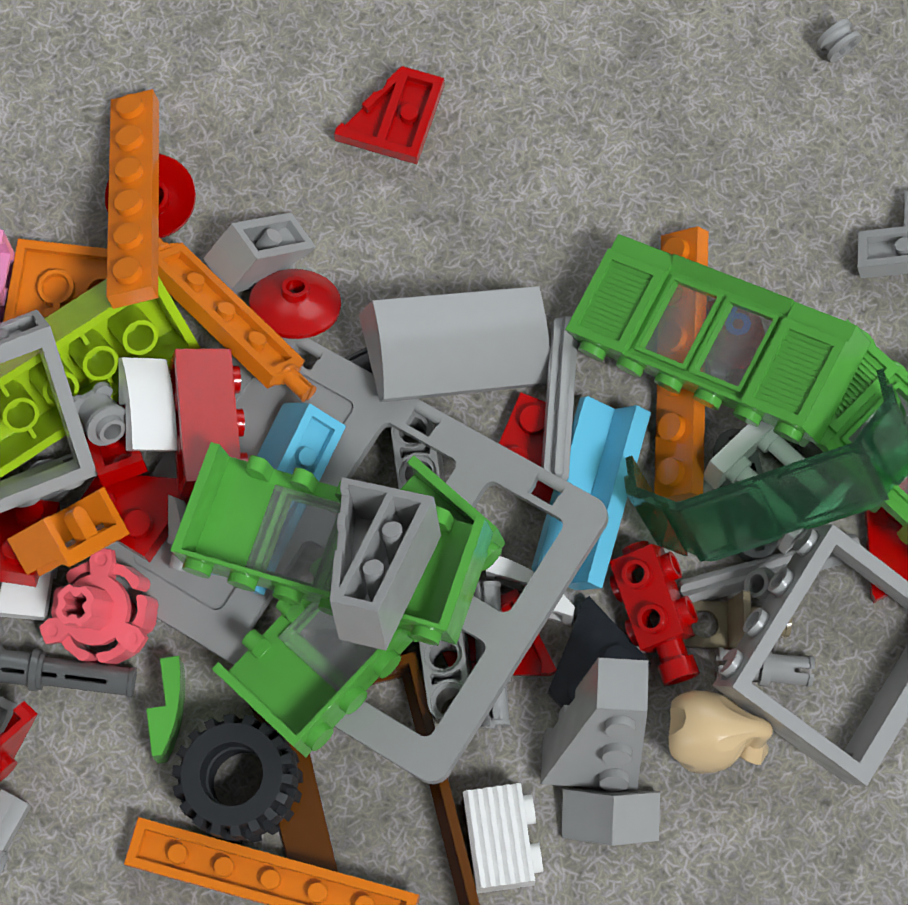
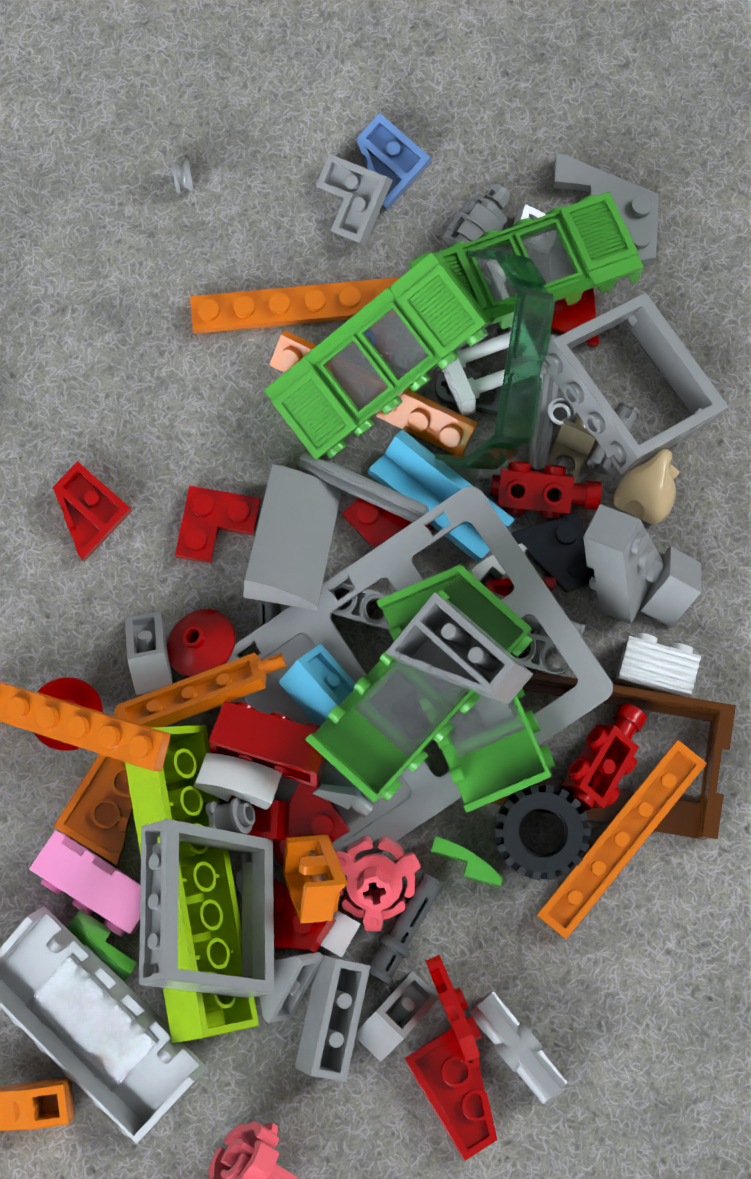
camera: 70 degrees left, 5 degrees up
(346, 826) = (605, 759): none -> red brick
(446, 244) = (207, 513): none -> red plate
(736, 211) = (283, 305): none -> orange plate

